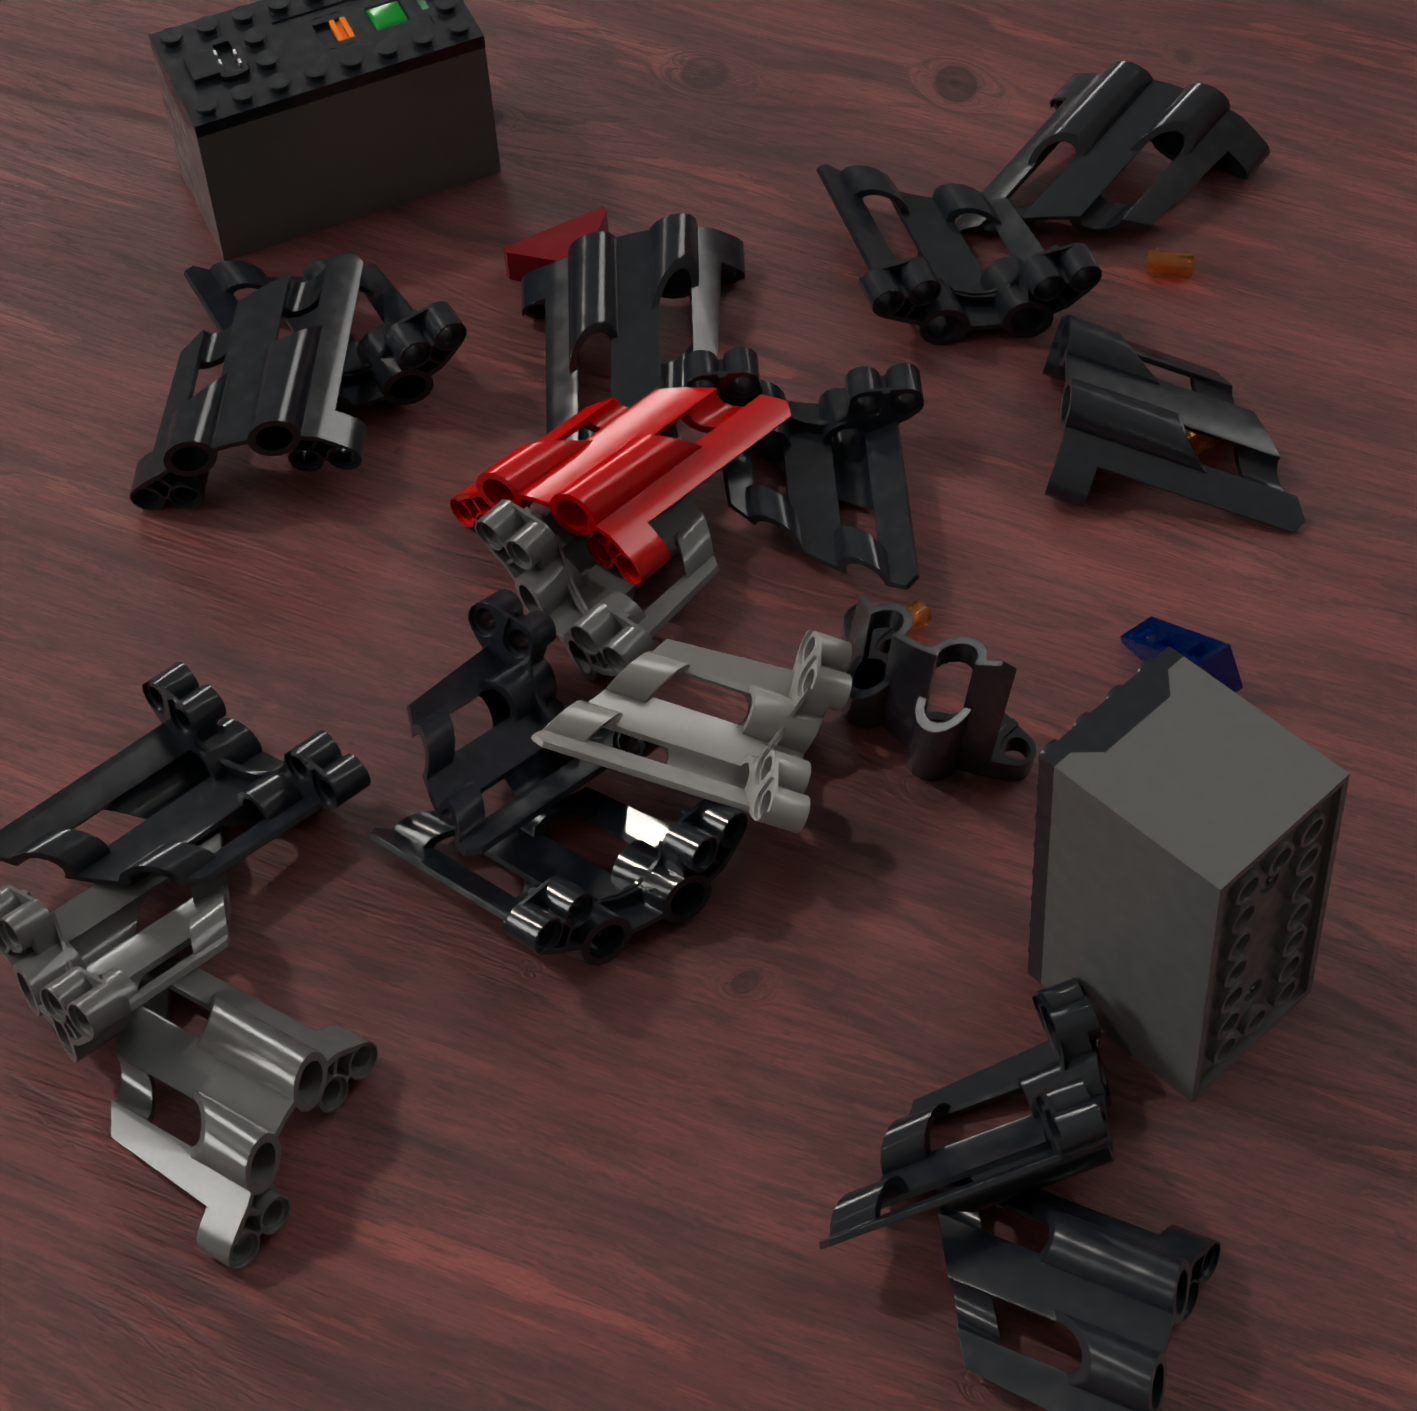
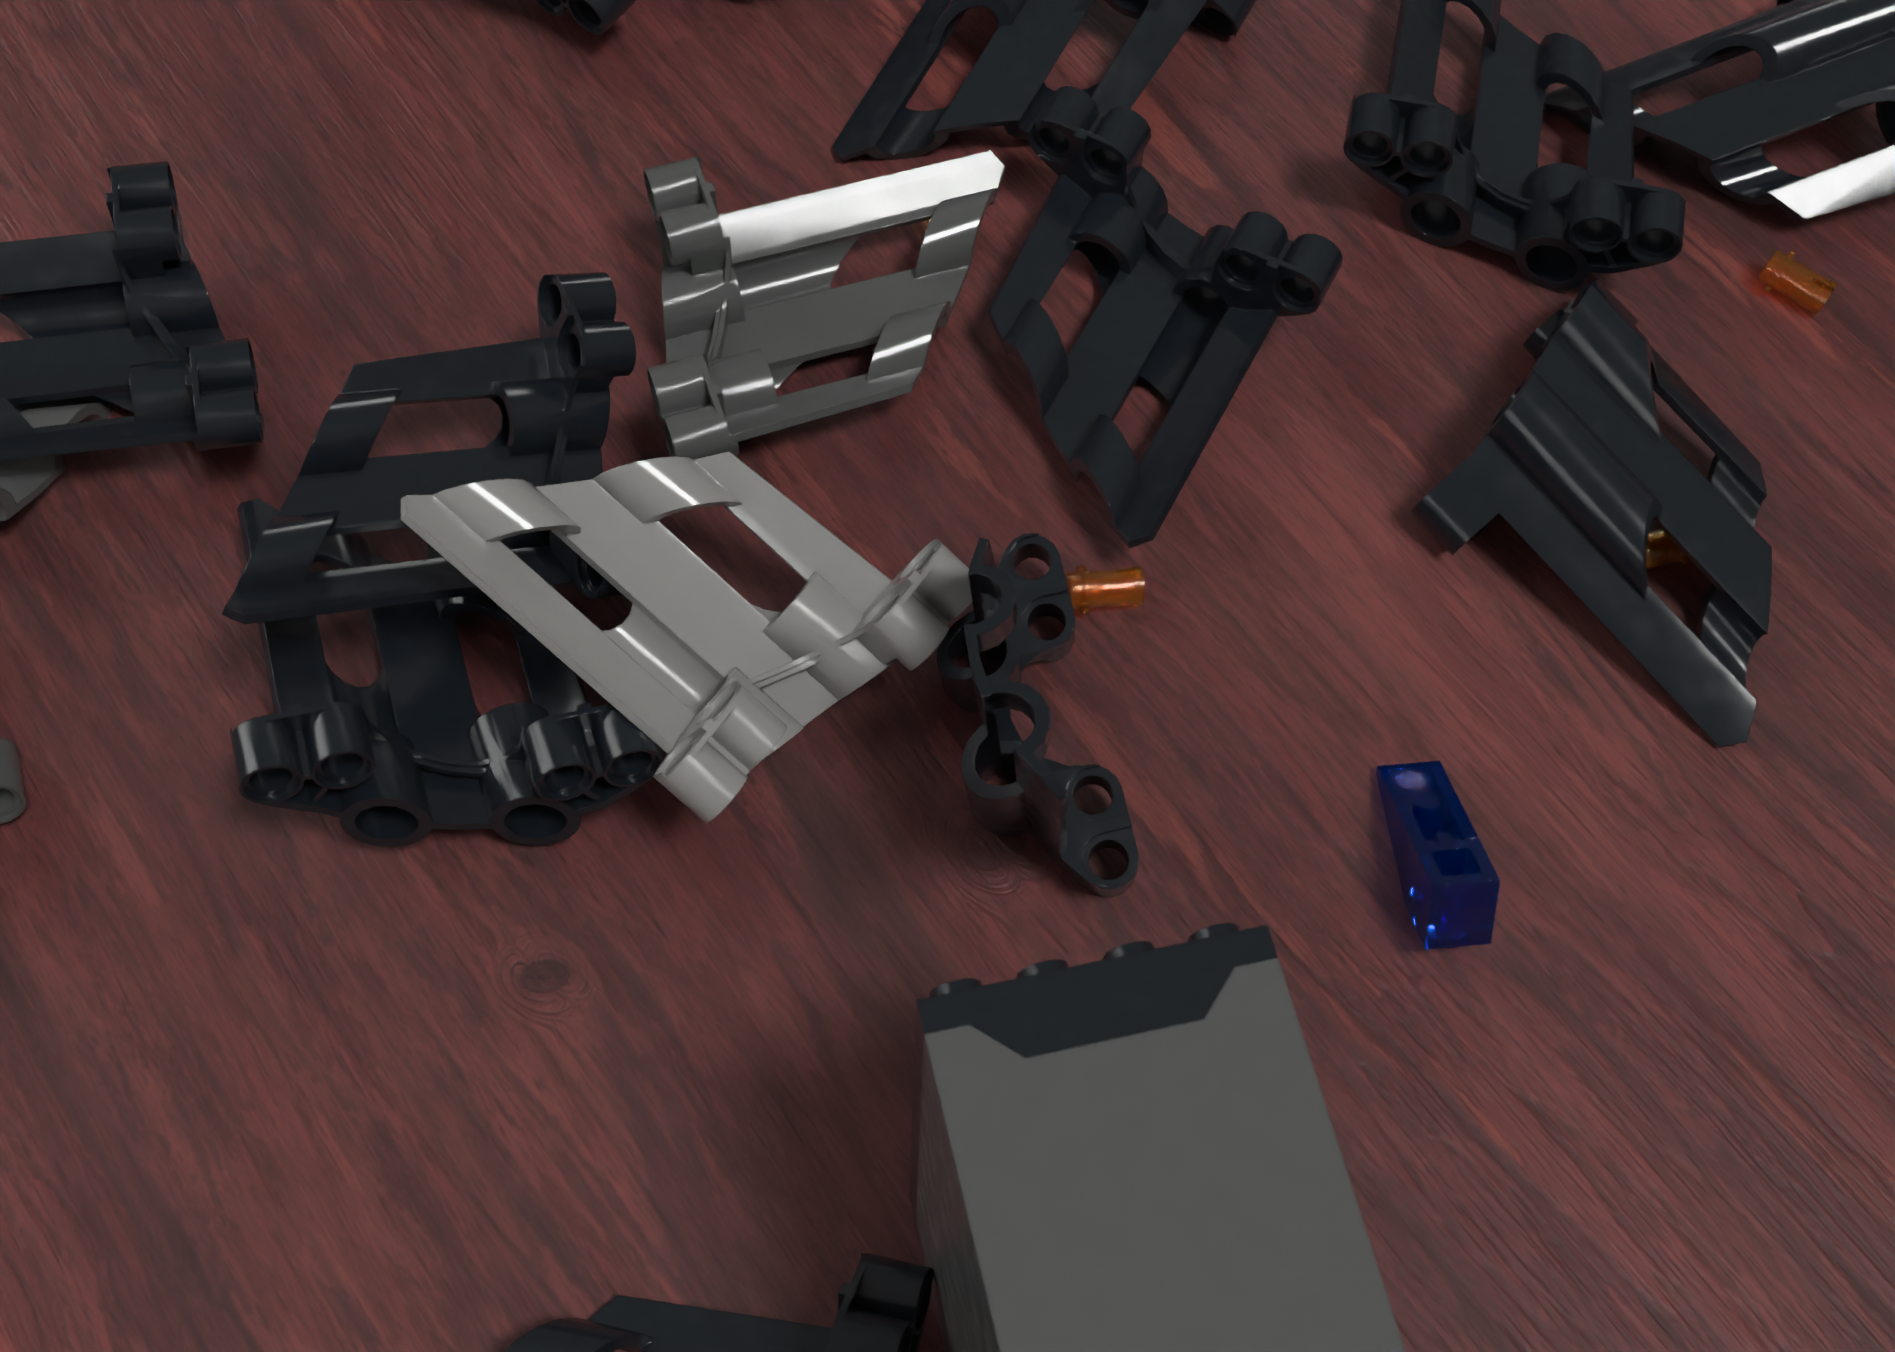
camera: 25 degrees right, 10 degrees up
(624, 470) = (872, 201): red panel -> none

